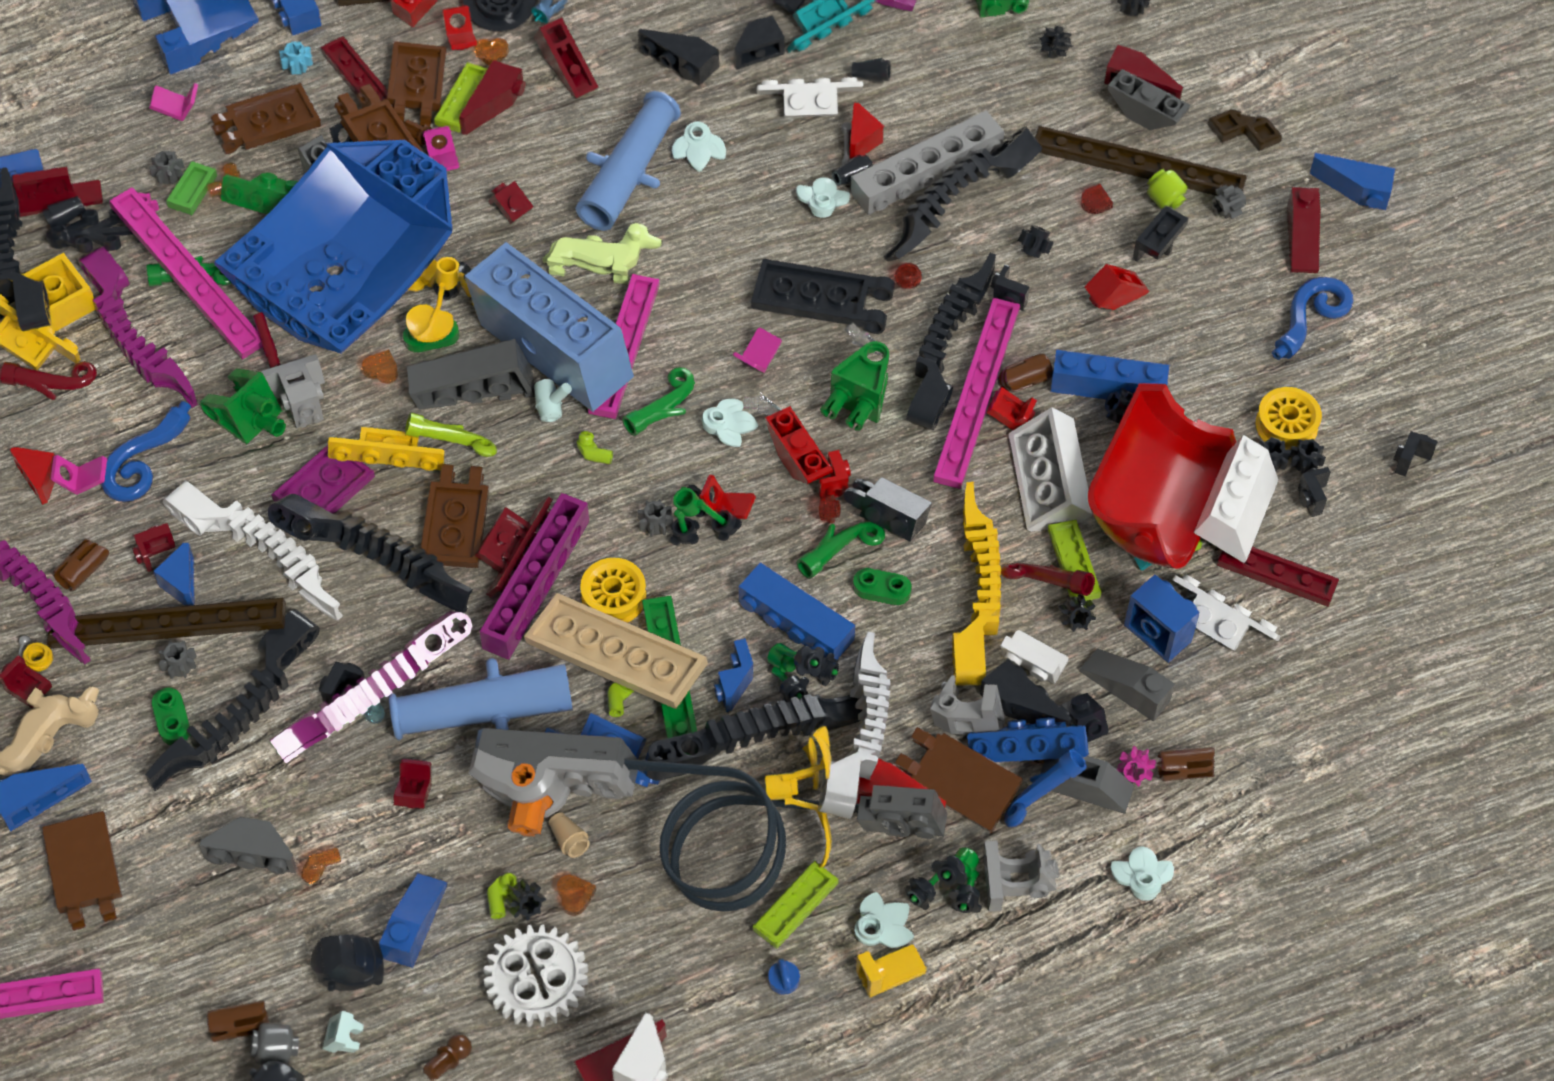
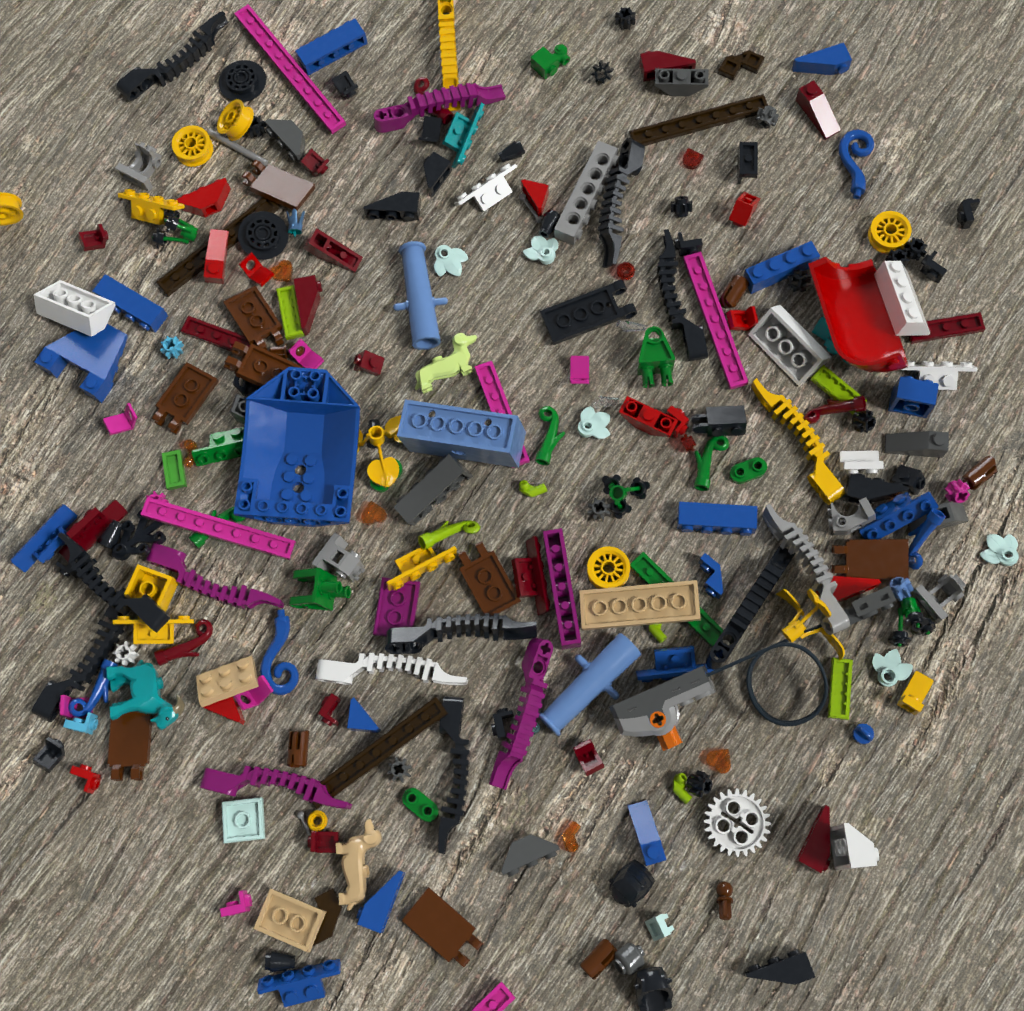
camera: 25 degrees left, 15 degrees up
(60, 439) = (226, 681): none -> tan plate
(166, 167) = (154, 470): dark grey gear -> none
(266, 340) = (299, 542): dark red piece -> none
(549, 399) = (487, 476): light aqua piece -> none
(570, 837) = (692, 729): tan cone -> none
(739, 502) = (628, 474): red bracket -> none
(804, 661) = (754, 548): black plant -> none
(968, 832) = (901, 588): none -> medium blue gear
(1167, 189) = (728, 129): lime head -> none

